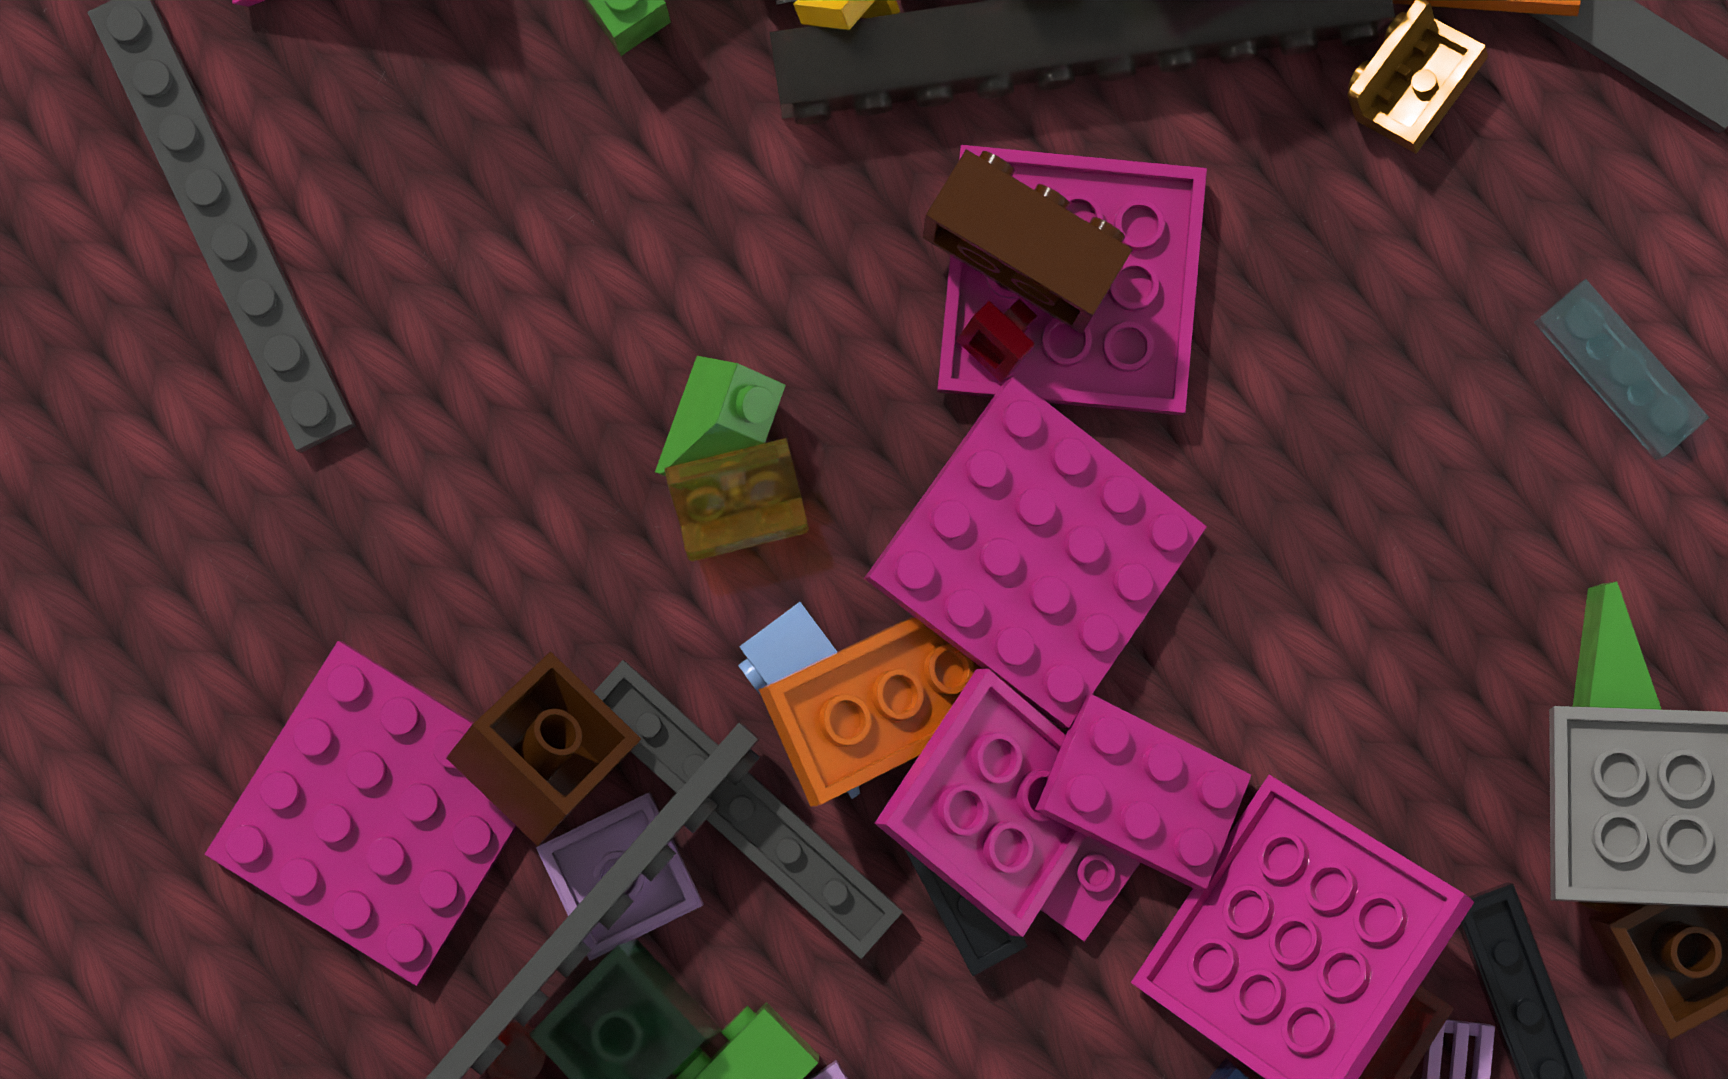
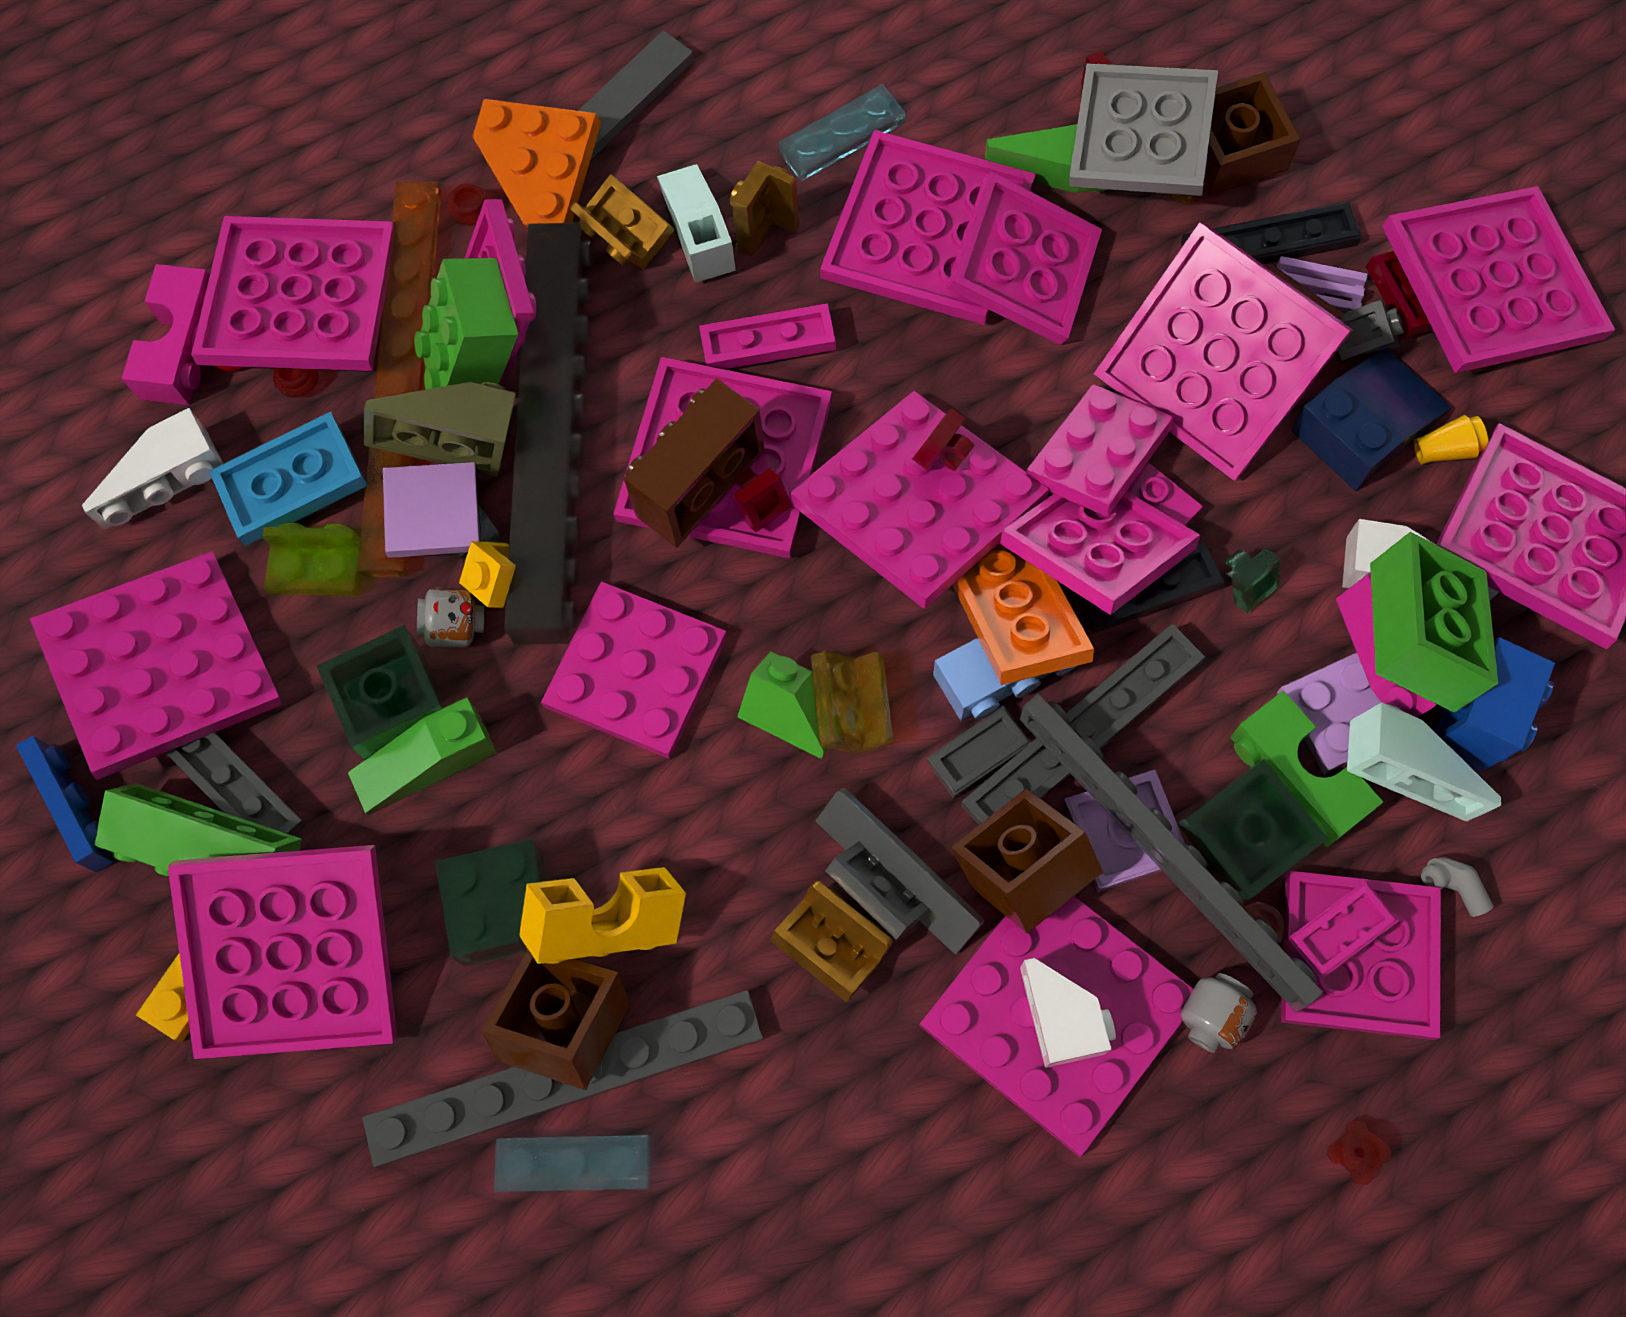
camera: 75 degrees left, 15 degrees down
(123, 247) = (572, 1163): none -> clear light blue plate
(276, 195) = (557, 1019): none -> reddish brown brick
(352, 817) = (1065, 1016): none -> white slope
(394, 1008) = (1219, 1012): none -> light grey head
(415, 95) = (486, 898): none -> clear green brick
(415, 272) = (564, 925): none -> yellow arch
(422, 518) = (832, 940): none -> pearl gold bracket
(510, 578) = (891, 877): none -> dark grey bracket
(699, 675) = (978, 752): none -> dark grey tile
(753, 212) = (635, 670): none -> dark pink plate
(984, 1015) = (1253, 578): none -> clear green tile
(1104, 574) = (945, 444): none -> dark red tile
(1261, 311) = (768, 337): none -> dark pink plate
(1429, 657) = (1024, 258): none -> dark pink plate
(1434, 180) = (698, 223): none -> light aqua slope
(1462, 264) = (763, 200): none -> pearl gold bracket
(1475, 514) = (909, 223): none -> dark pink plate

